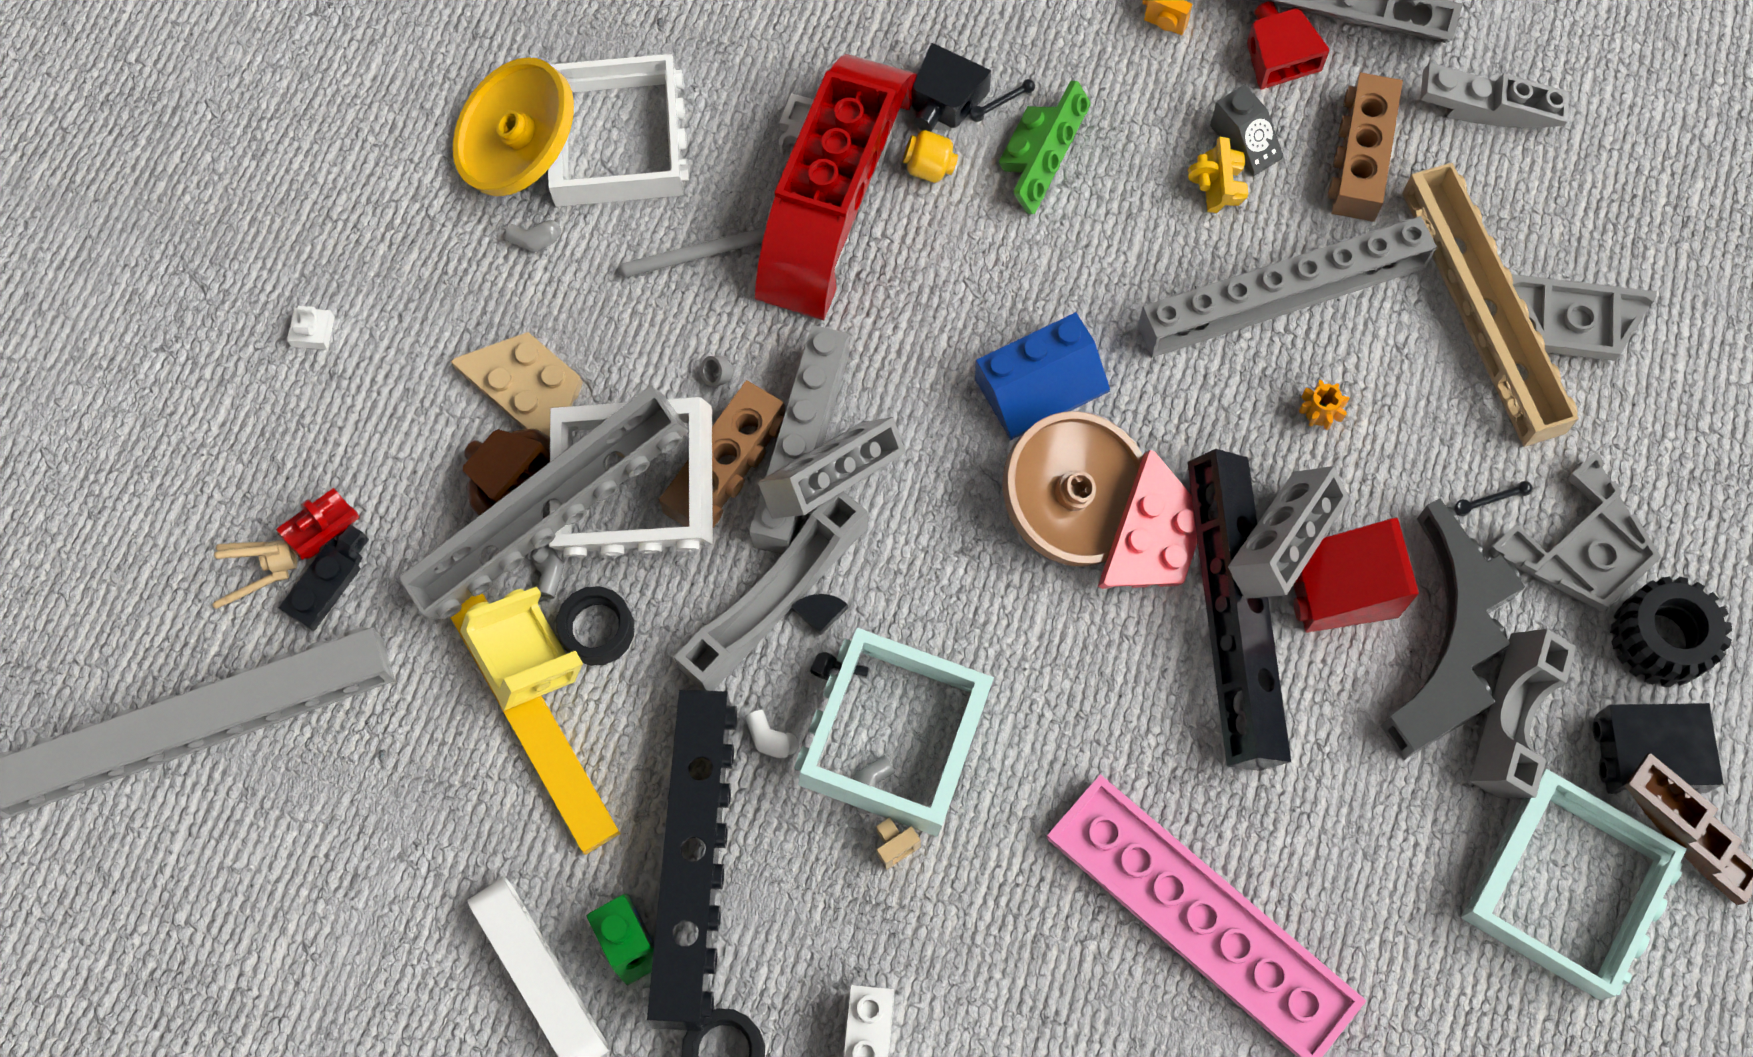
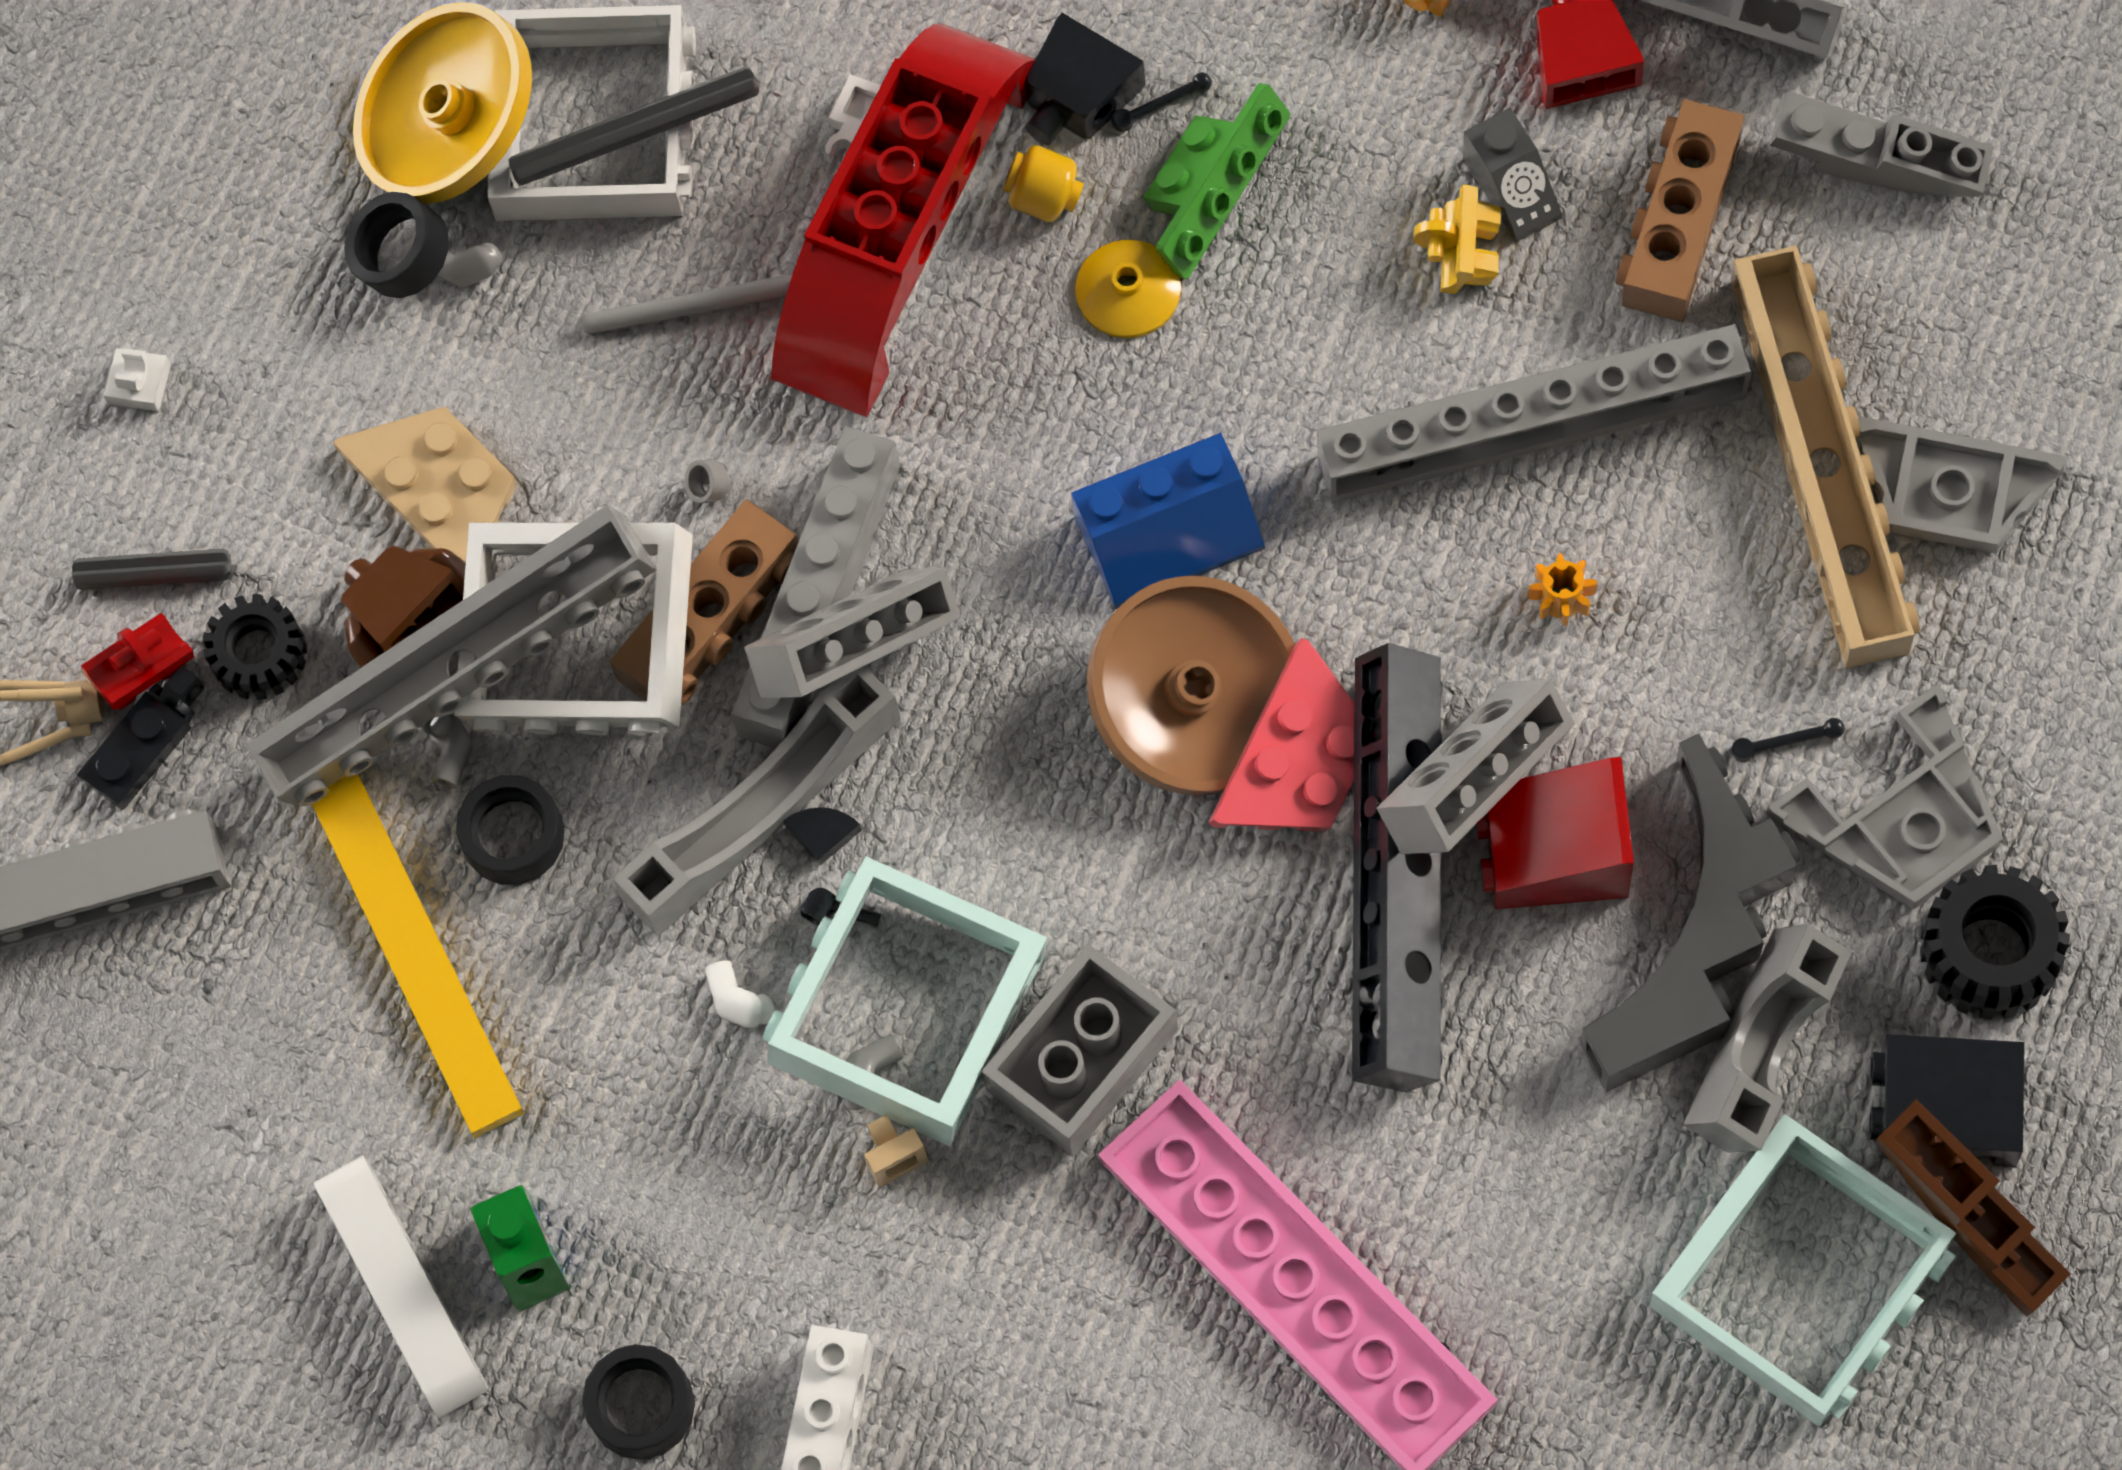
camera: 10 degrees right, 0 degrees up
(326, 458) = (151, 569): none -> dark grey axle
(391, 490) = (245, 619): none -> black tyre
(469, 214) = (372, 226): none -> black tyre
(518, 648) = (402, 852): light yellow panel -> none
(646, 133) = (633, 126): none -> dark grey axle
(688, 888) = (609, 1186): black piece -> none
(993, 236) = (1127, 309): none -> yellow dish
(1026, 758) = (1080, 1050): none -> light grey brick

